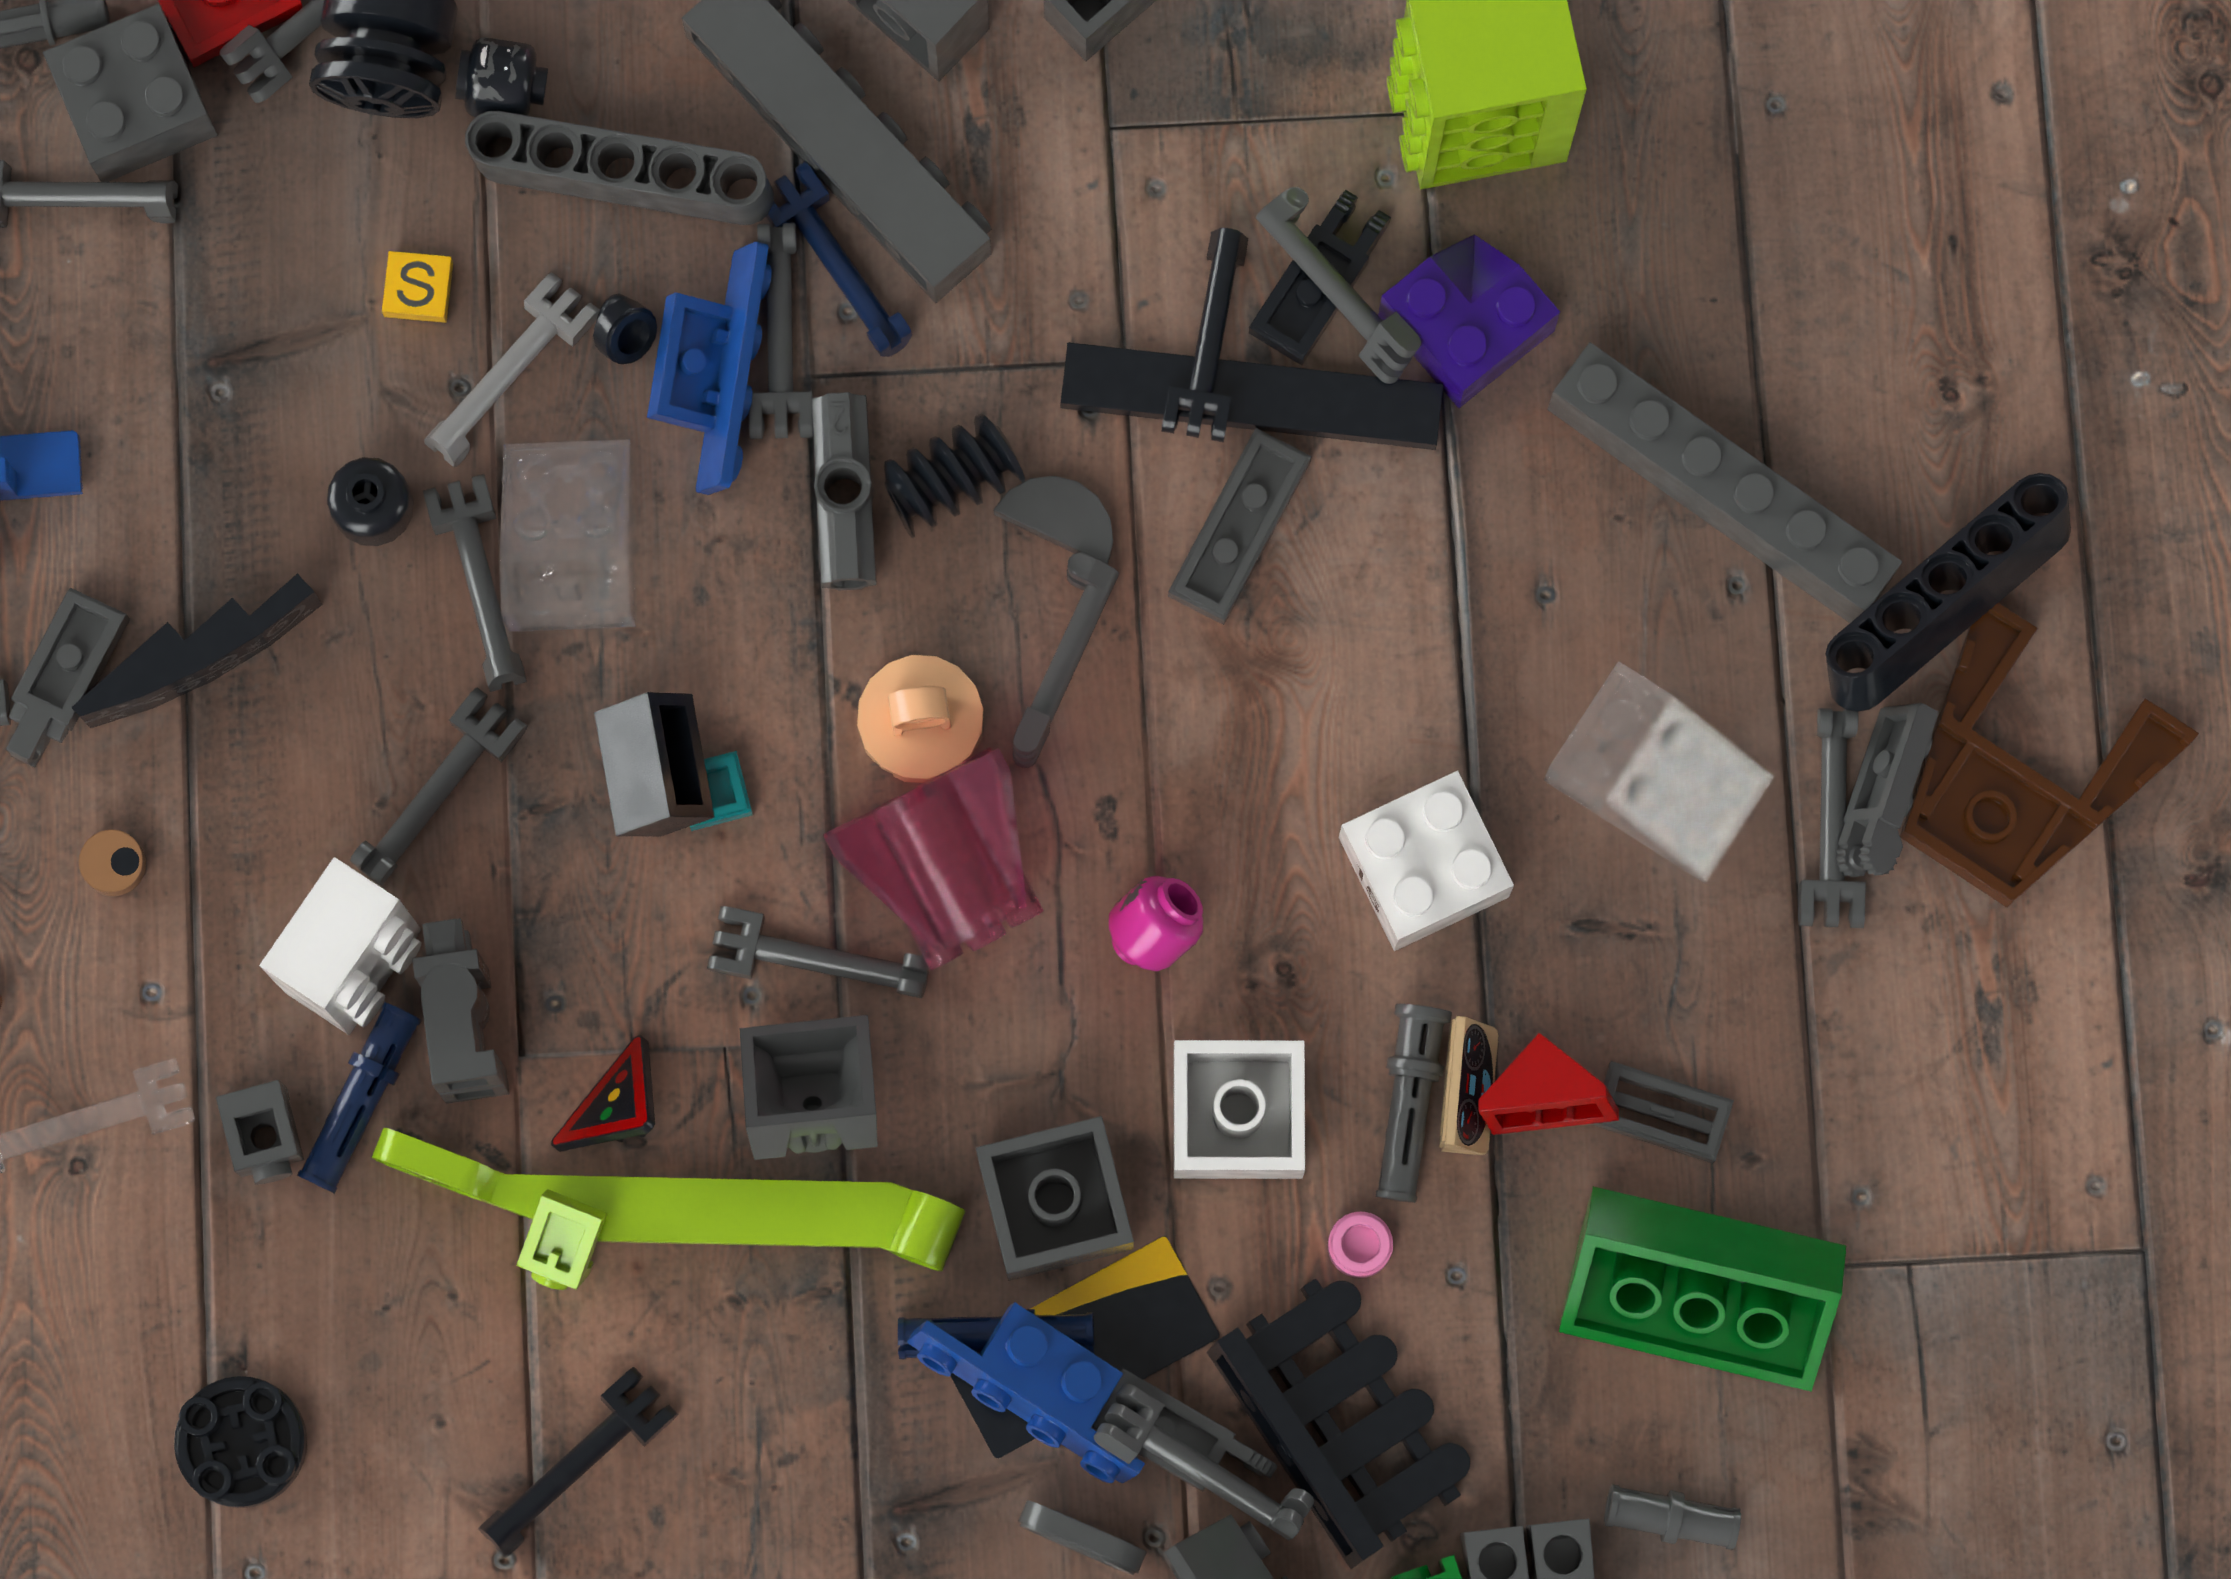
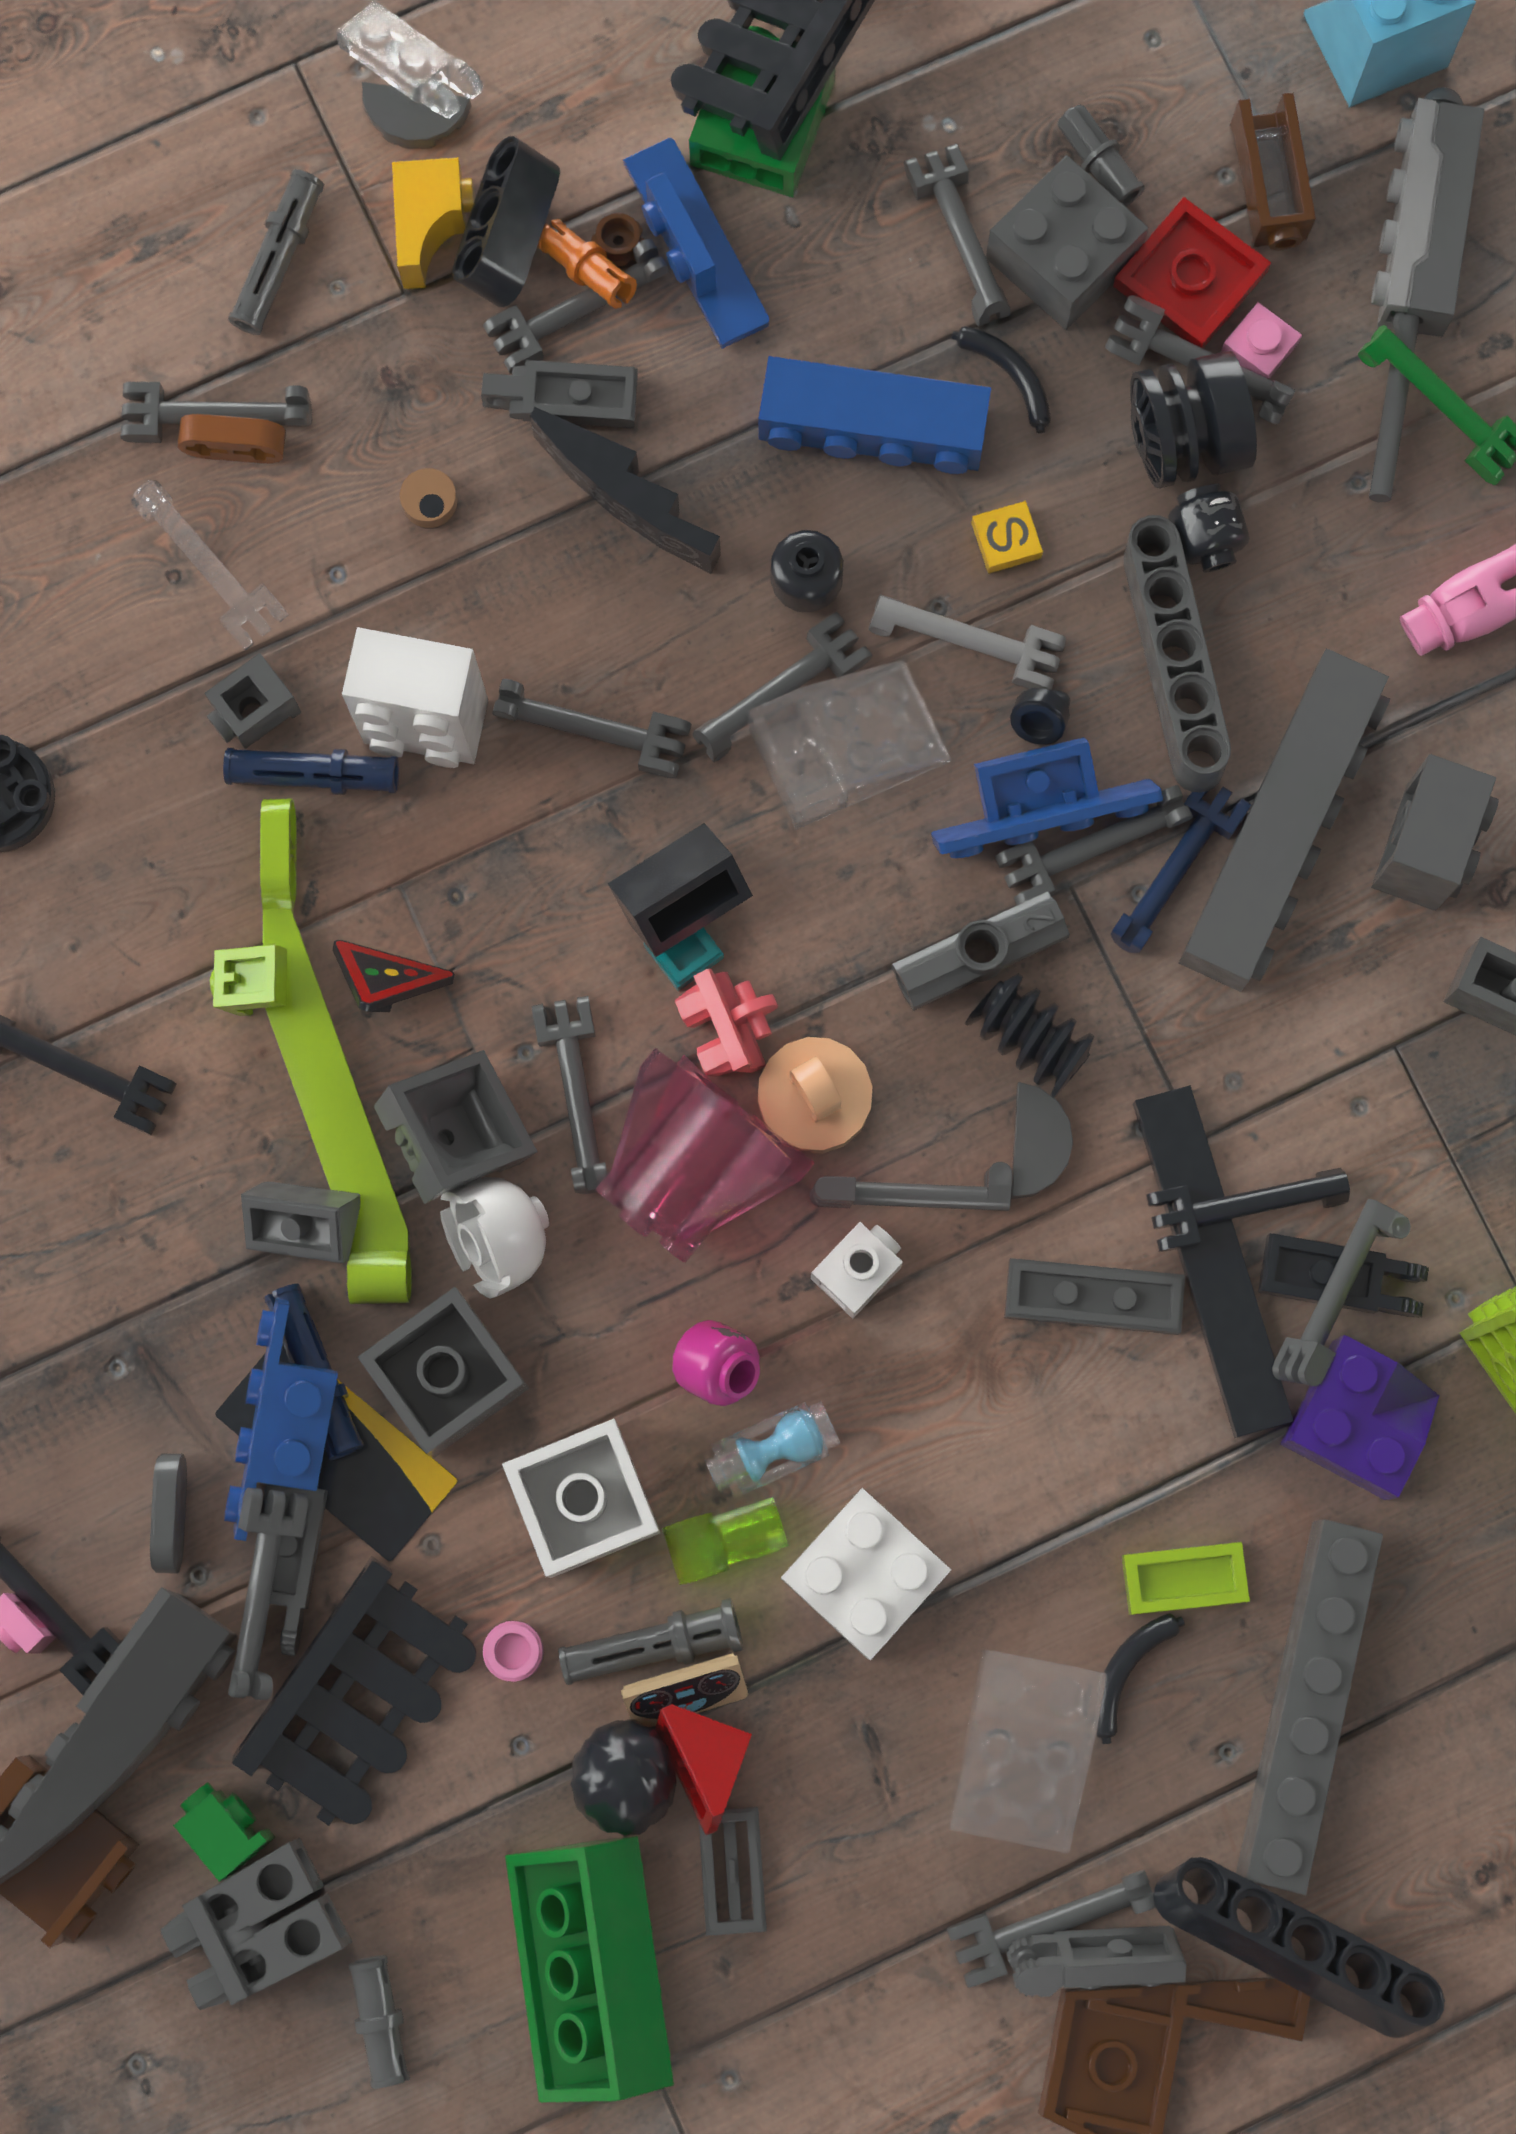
camera: 70 degrees right, 0 degrees up
(229, 366) = (873, 415): none -> blue brick
(237, 202) = (1014, 366): none -> black piece
(457, 1014) = (404, 815): dark grey hips -> none
(782, 775) = (733, 1019): none -> coral hips
(835, 1288) = (300, 1221): none -> dark grey slope
(934, 1092) = (495, 1231): none -> white cylinder
(1117, 745) = (858, 1267): none -> white brick
(1262, 870) = (799, 1436): none -> clear piece
(1334, 1001) = (712, 1543): none -> clear neon green piece
(1530, 1179) = (623, 1778): none -> black hair
(1553, 554) = (1185, 1578): none -> lime tile
(1605, 637) = (1123, 1663): none -> black piece

